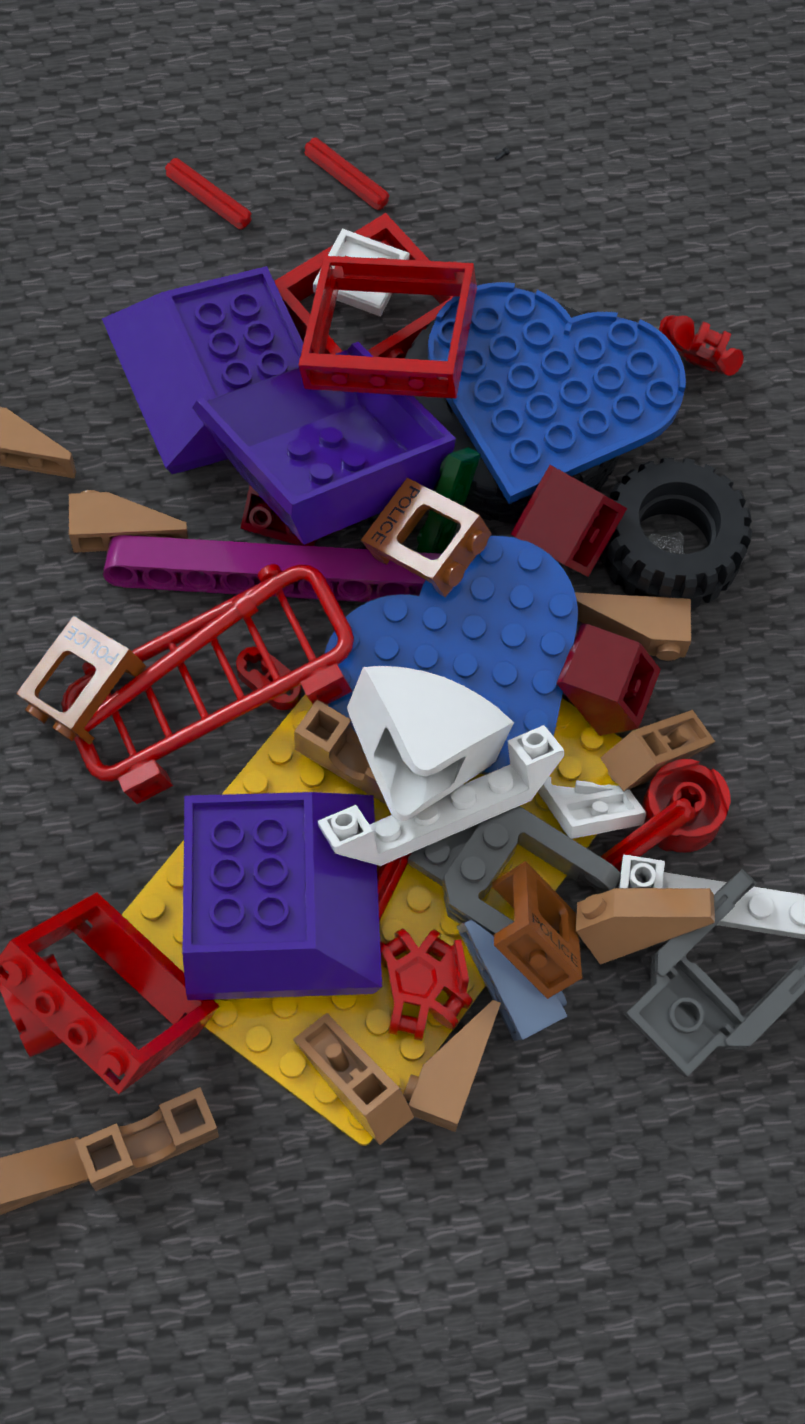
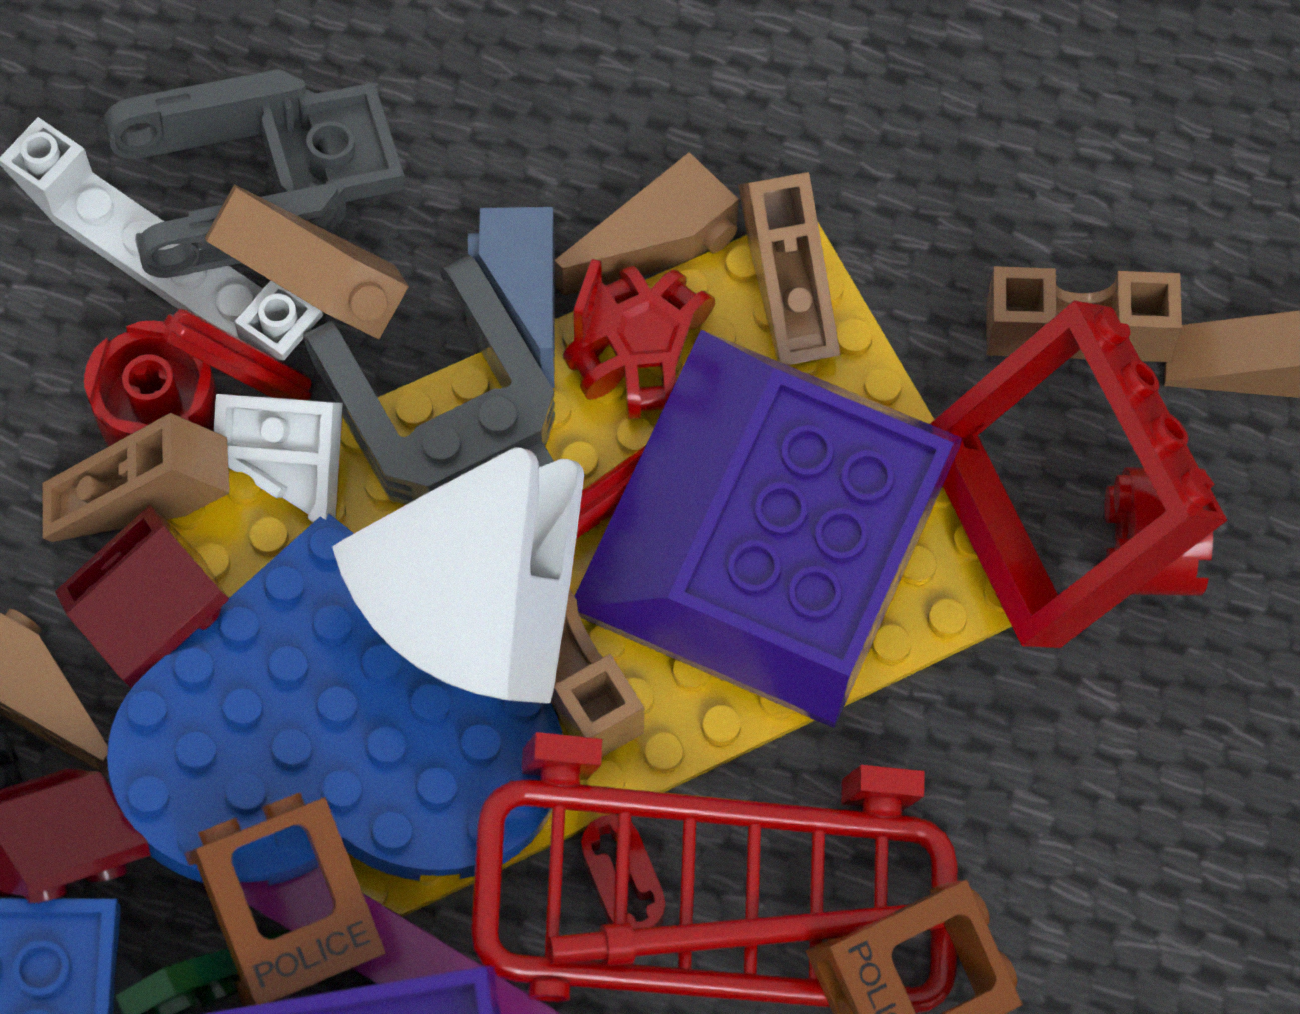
camera: 150 degrees left, 0 degrees up
(531, 762) = (612, 503): white slope -> none
(532, 939) = (474, 256): dark orange window -> none

